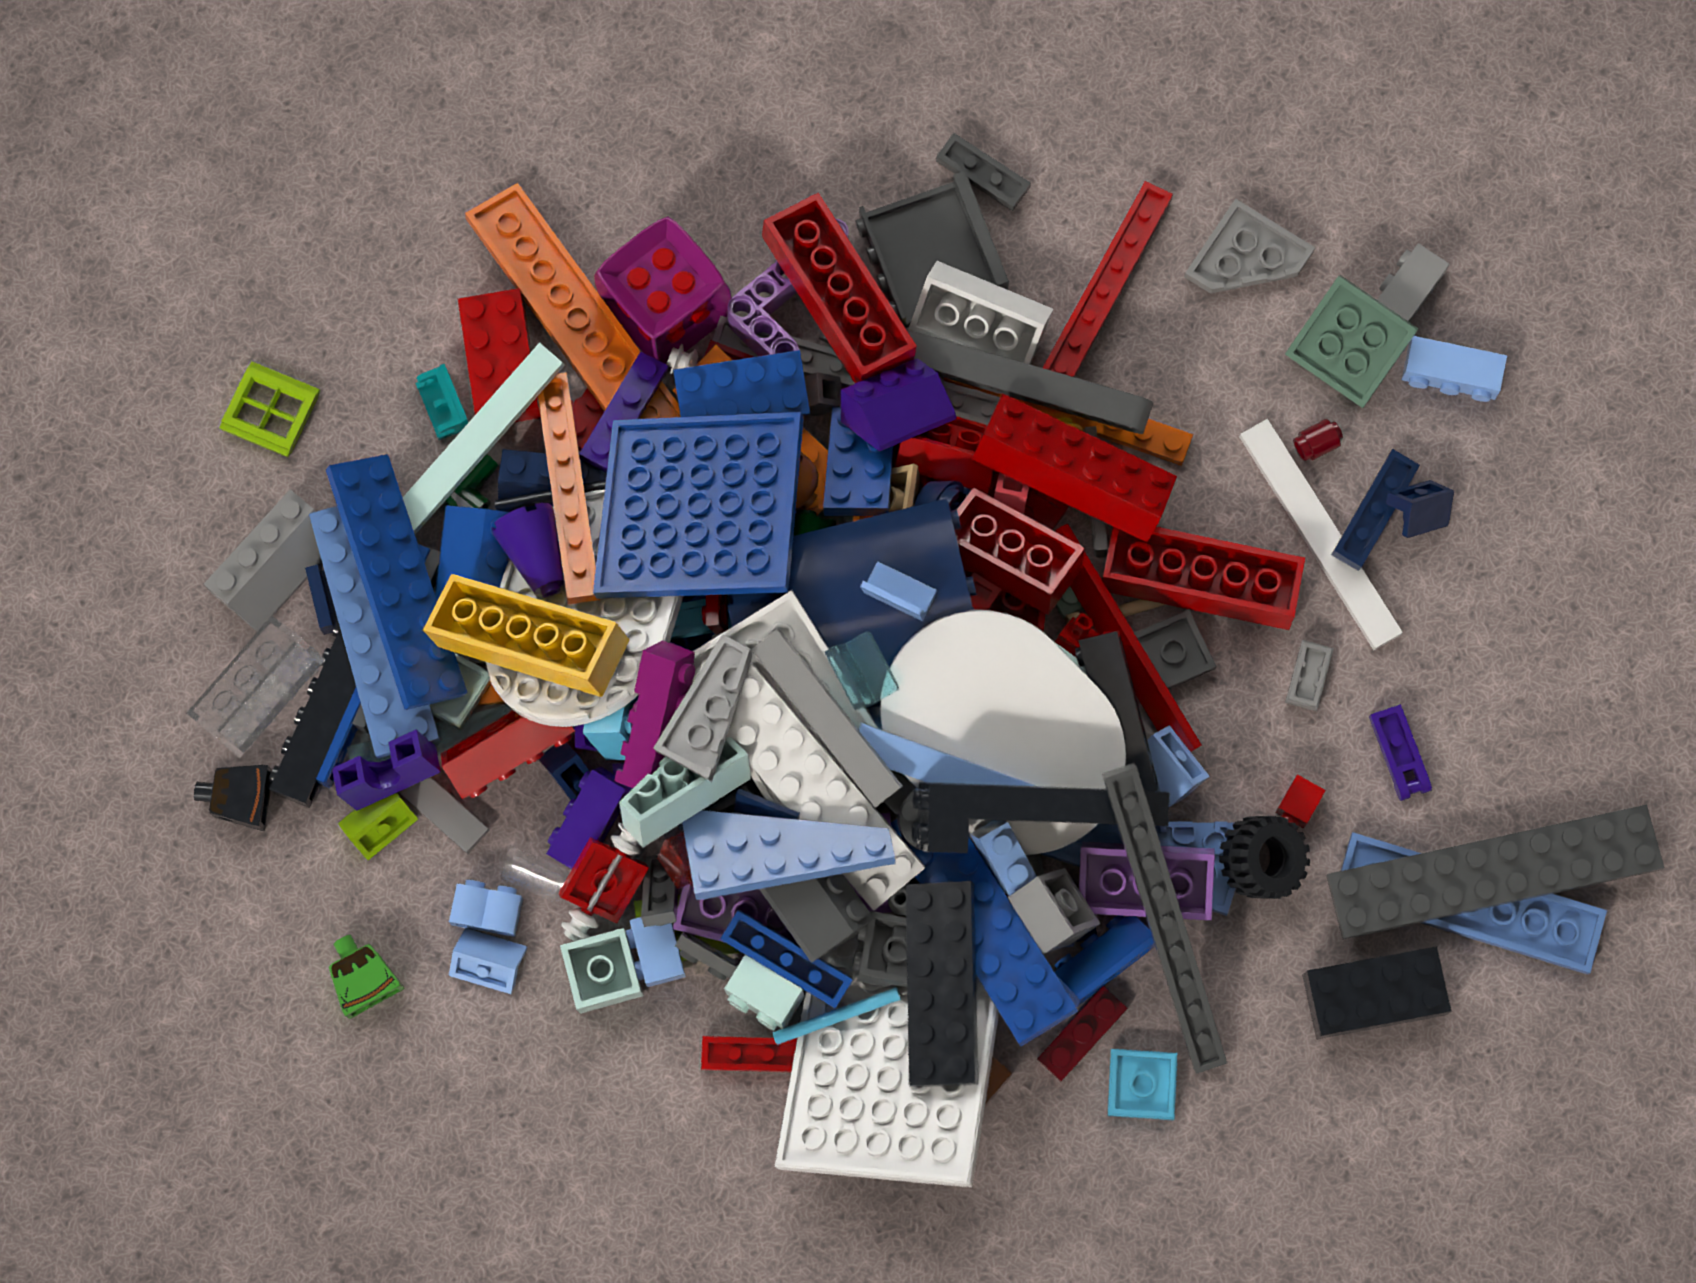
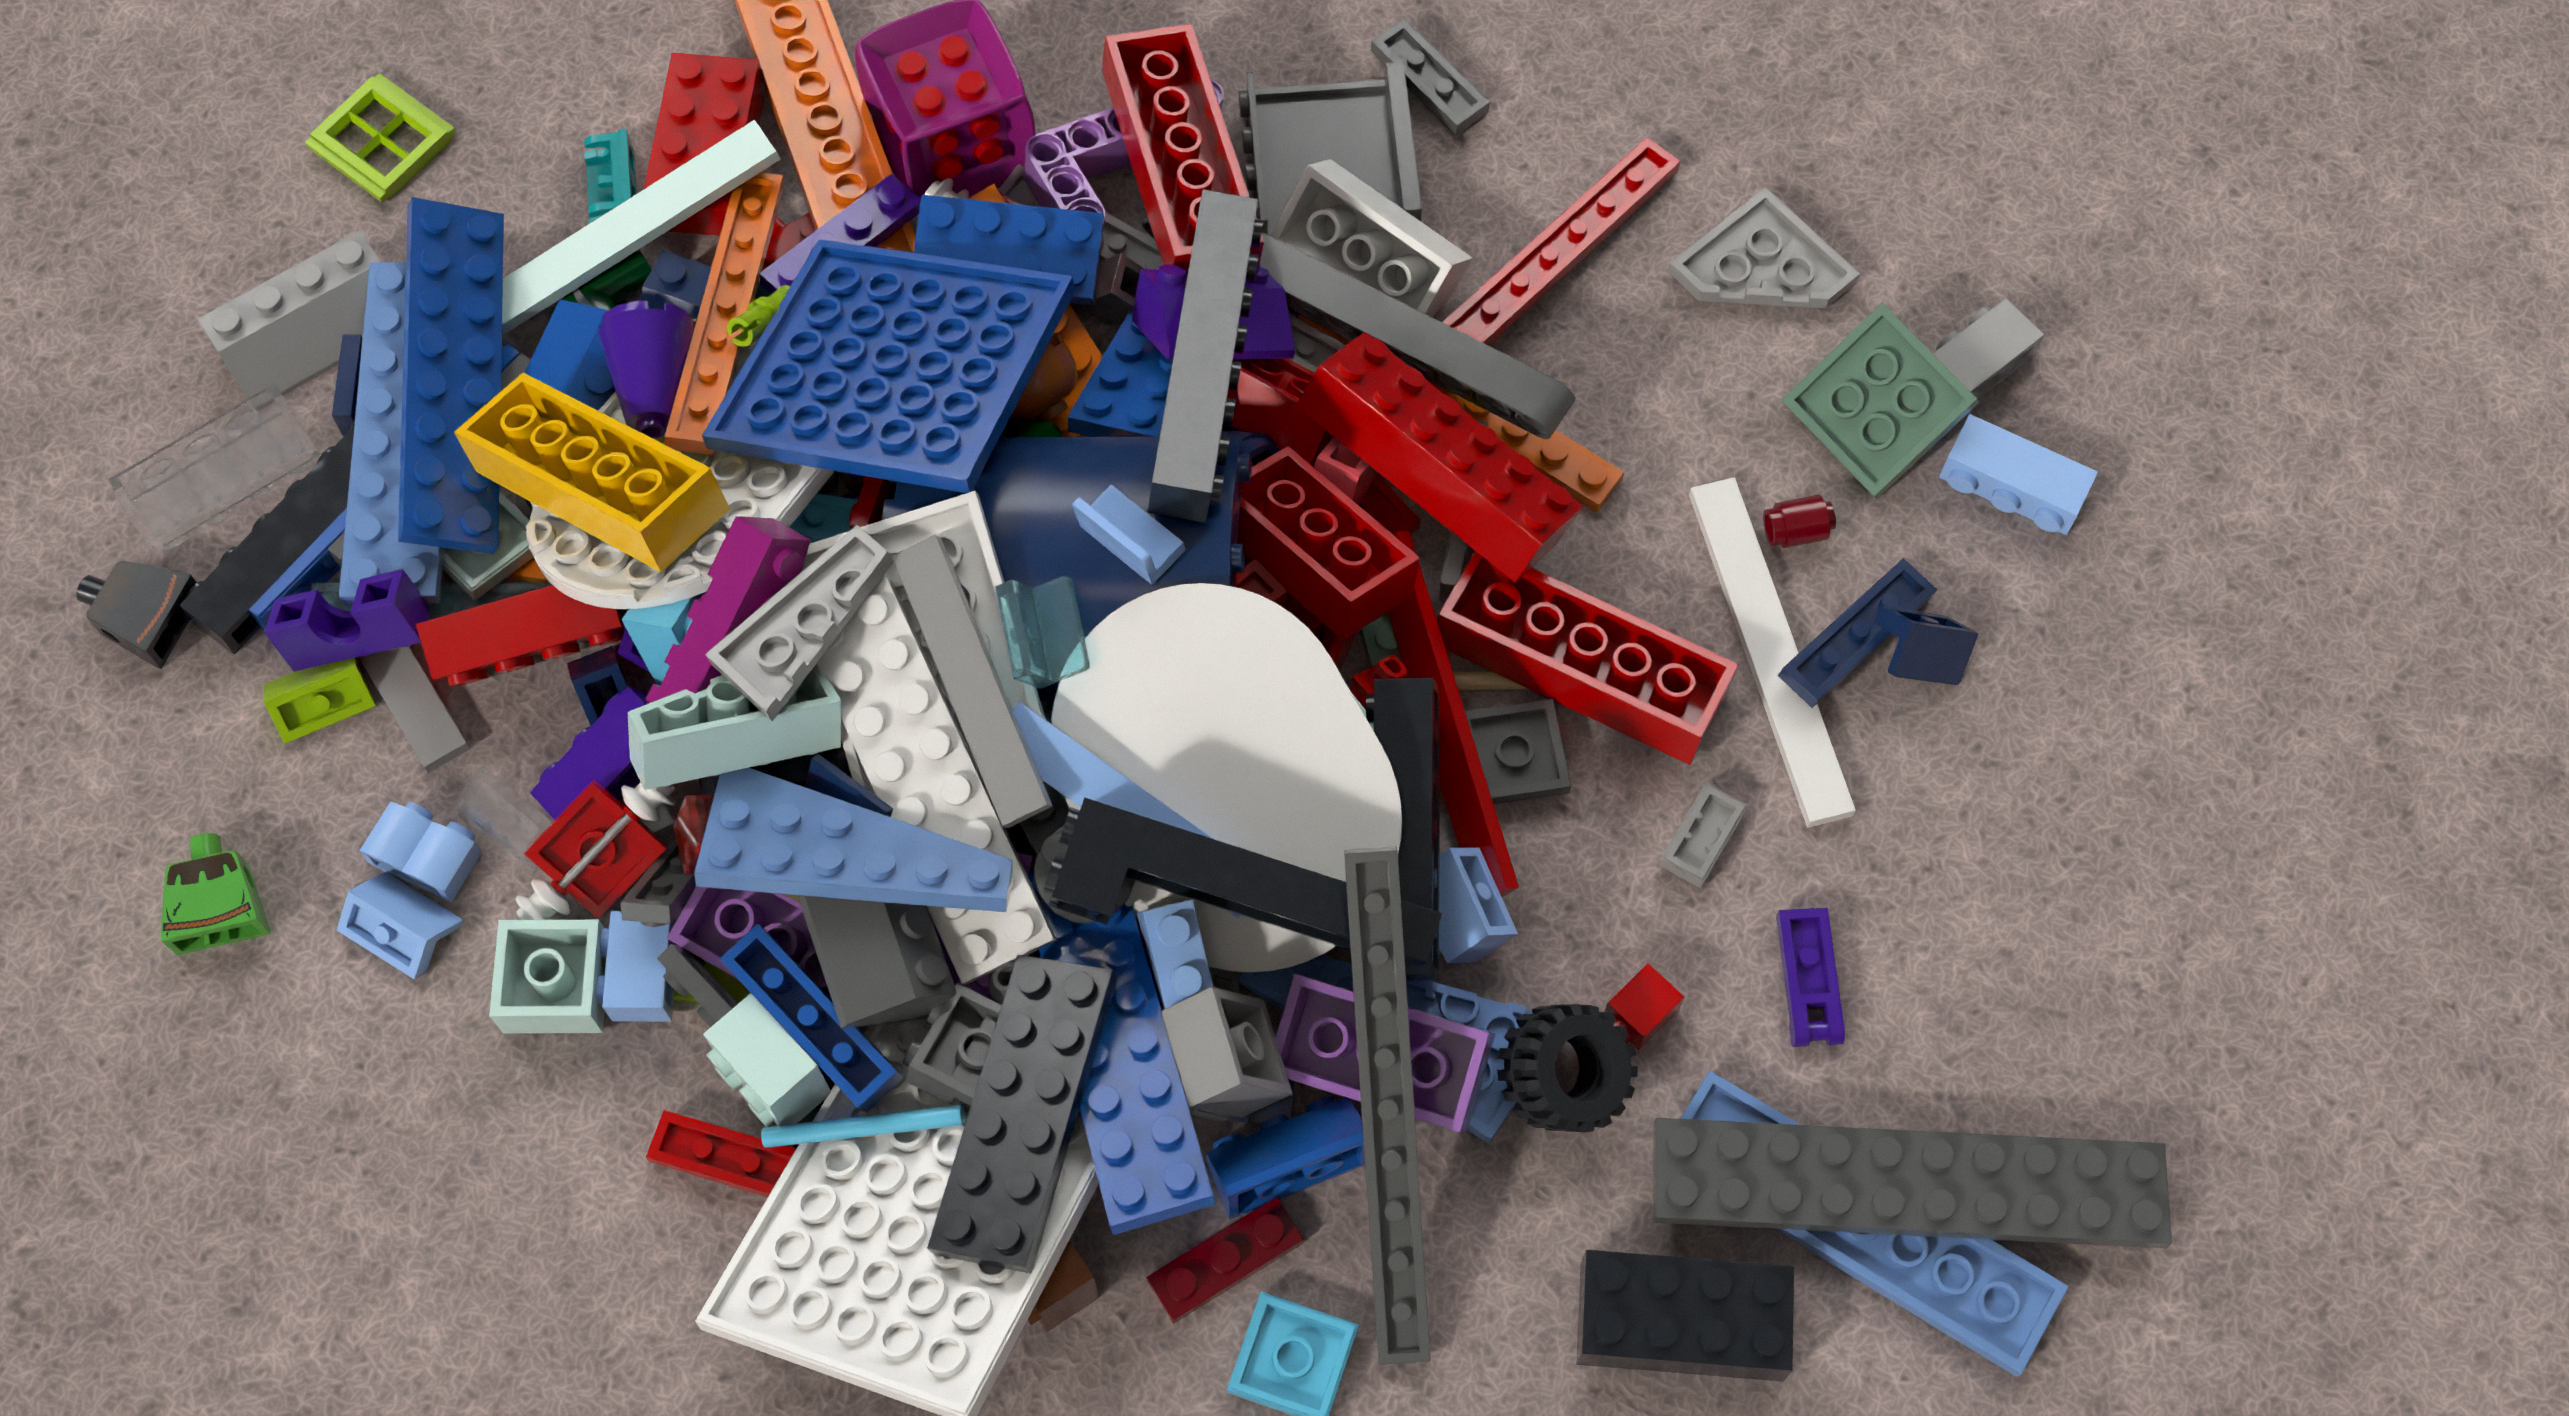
camera: 10 degrees right, 10 degrees down
(595, 490) = (756, 317): none -> lime pin
(909, 450) = (1203, 358): none -> brick

